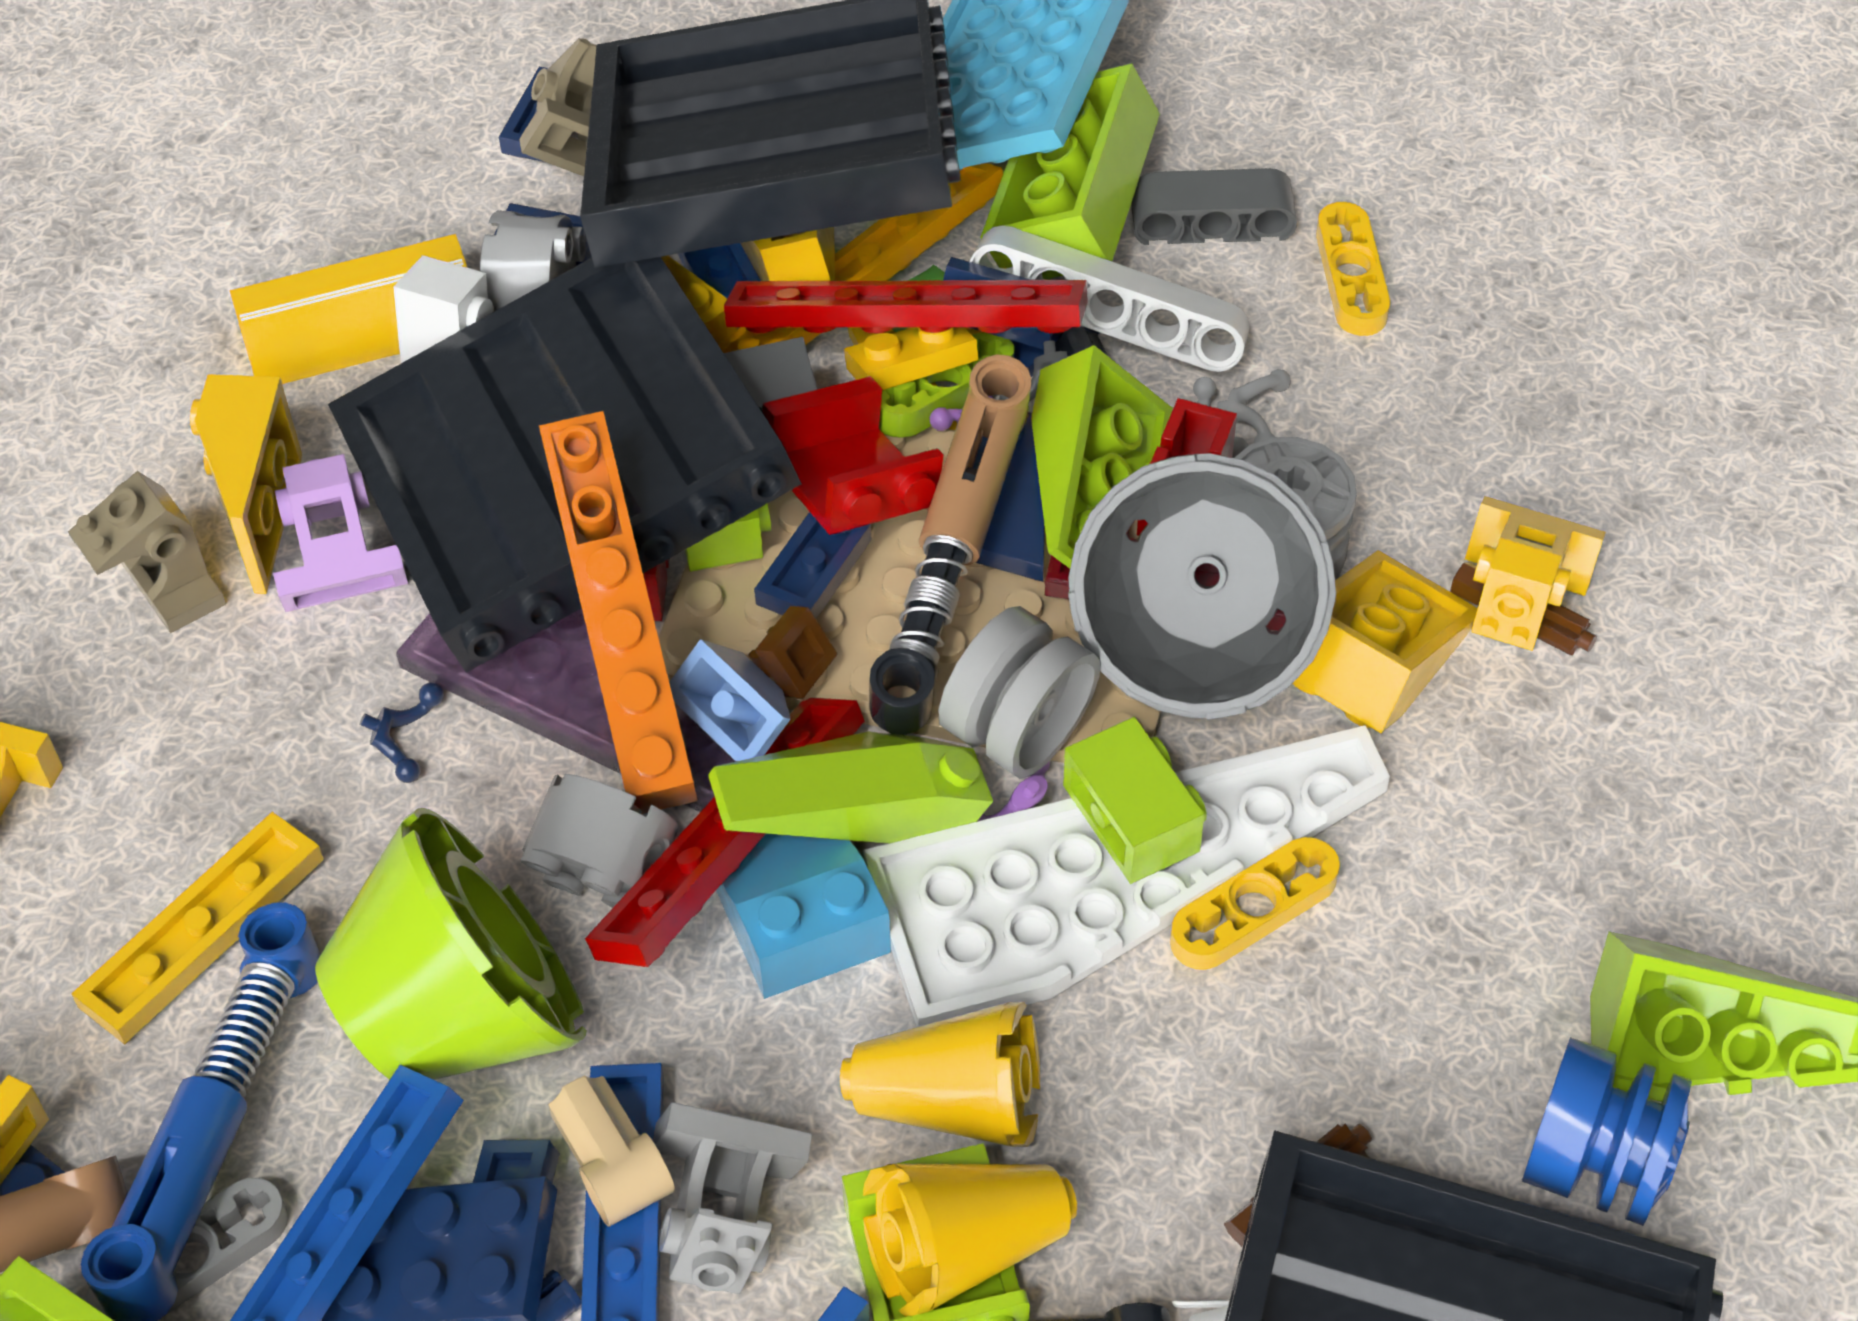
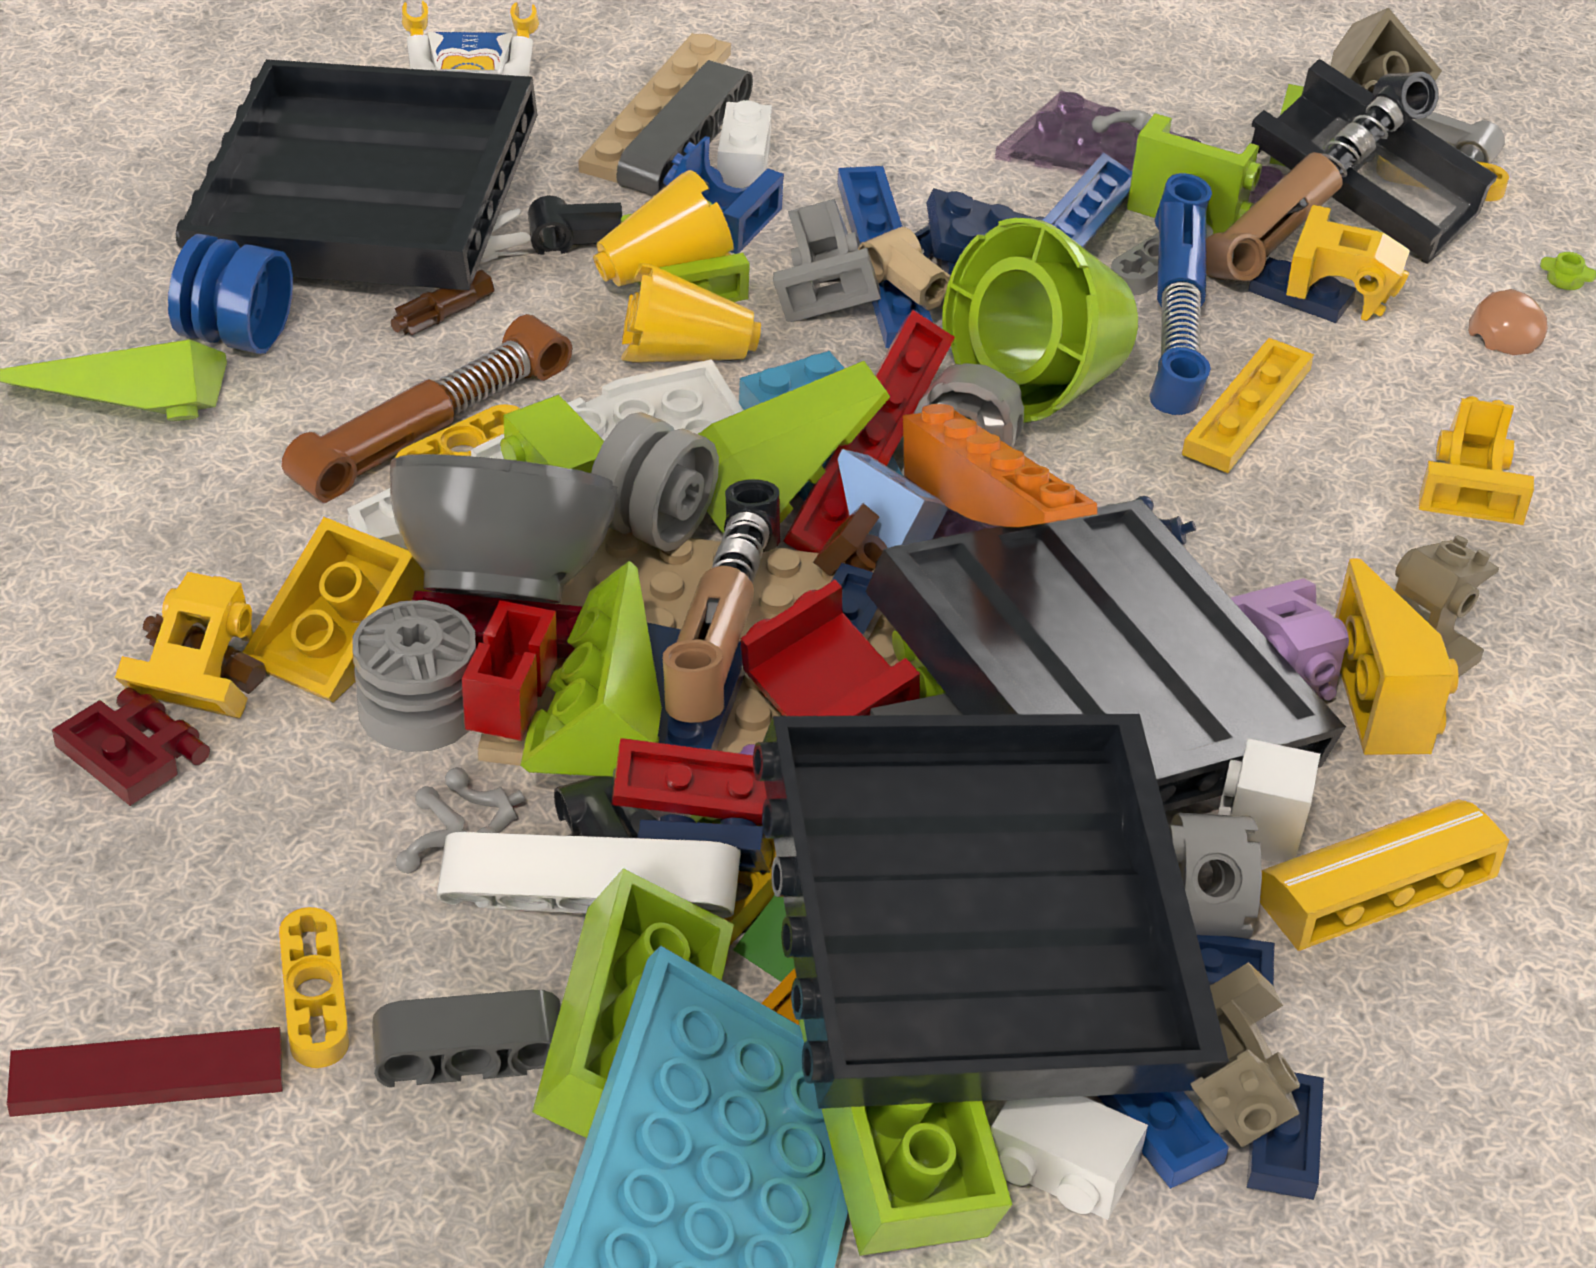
camera: 170 degrees right, 10 degrees down
(1422, 862) = (331, 462): none -> dark orange piece
(1483, 211) = (144, 1071): none -> dark red tile
(1580, 487) = (122, 756): none -> dark red plate

